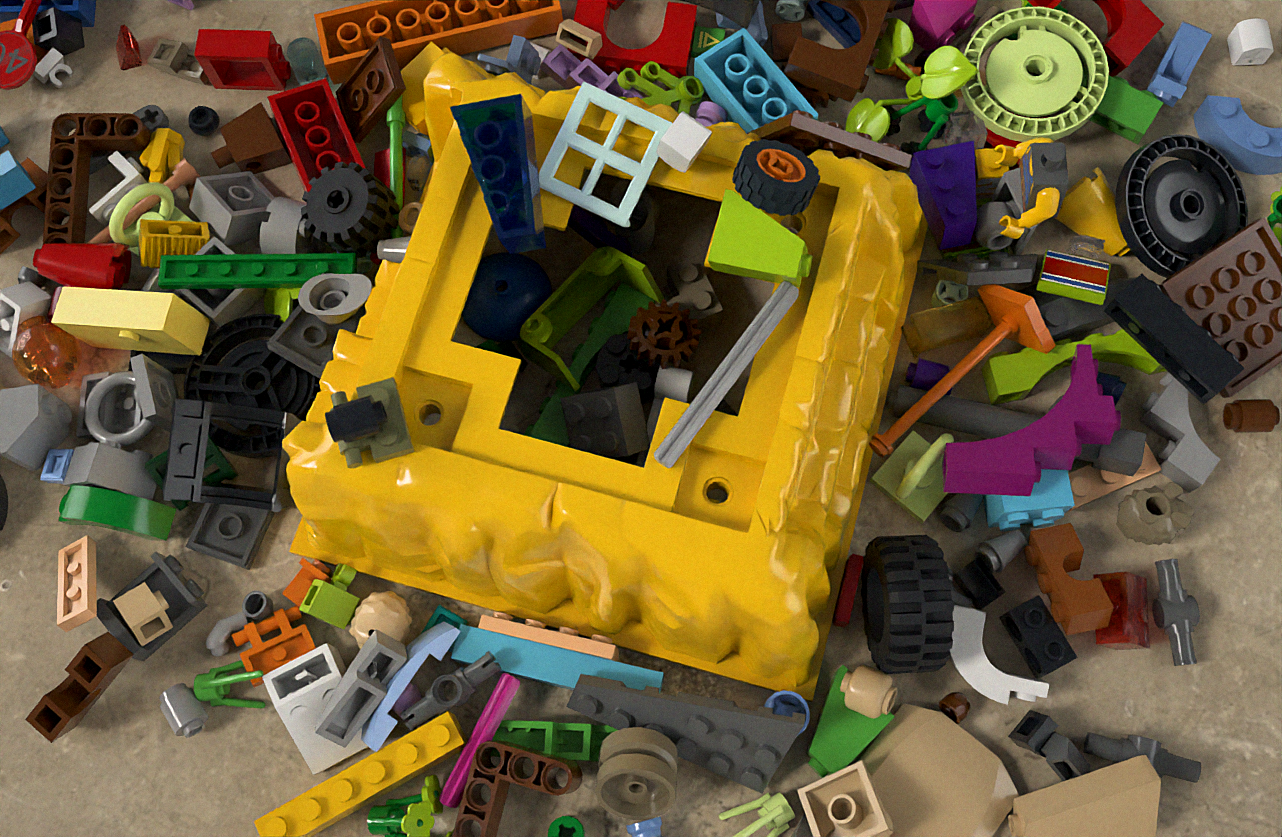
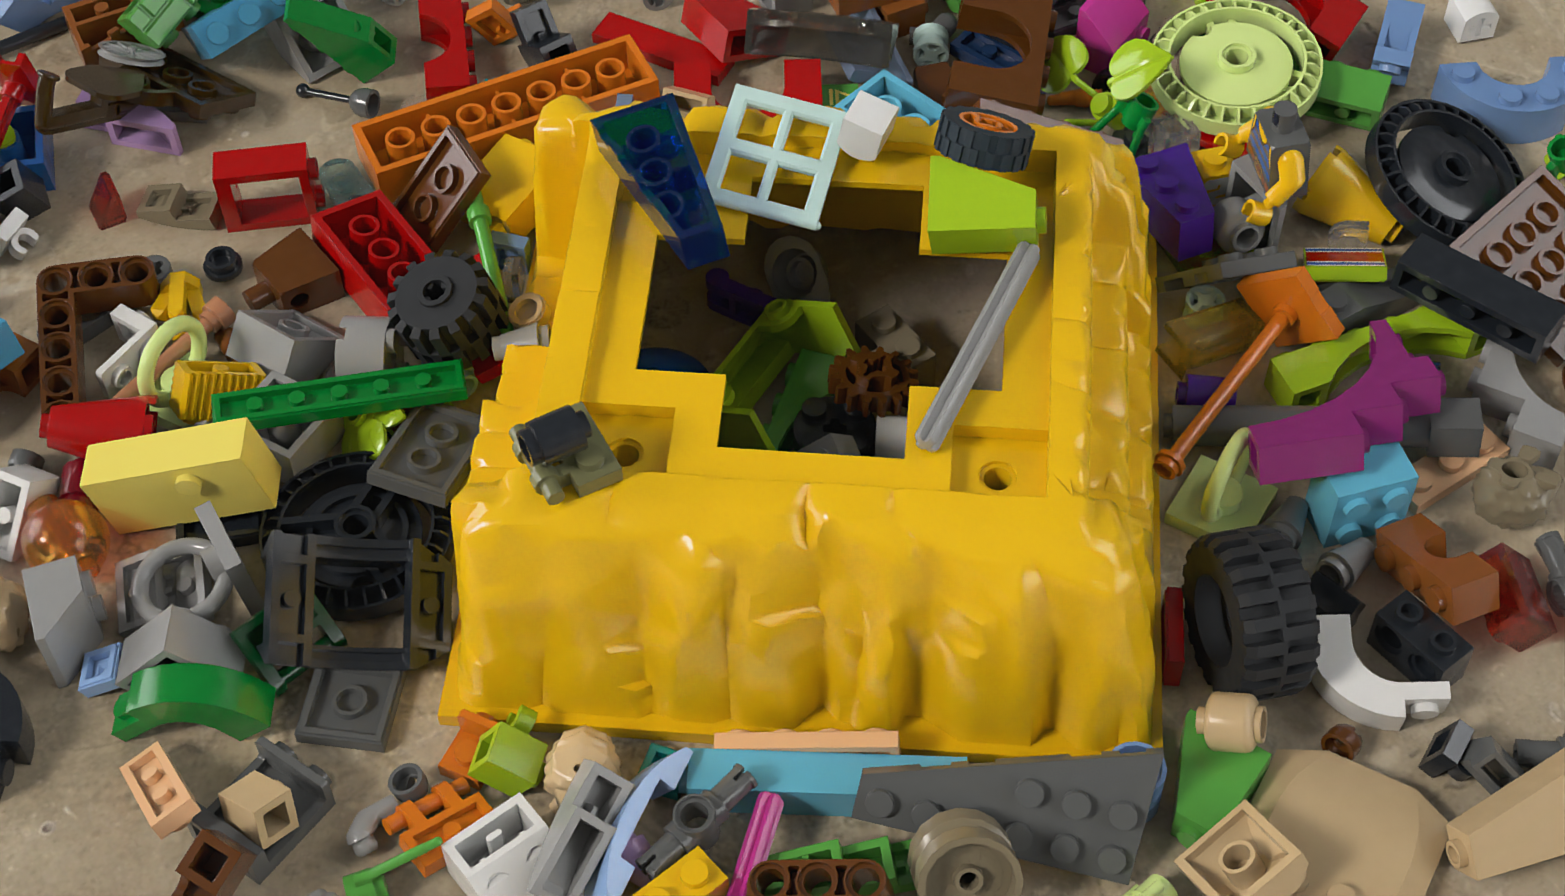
camera: 15 degrees left, 20 degrees down
(334, 296) = (450, 405): light grey piece -> none

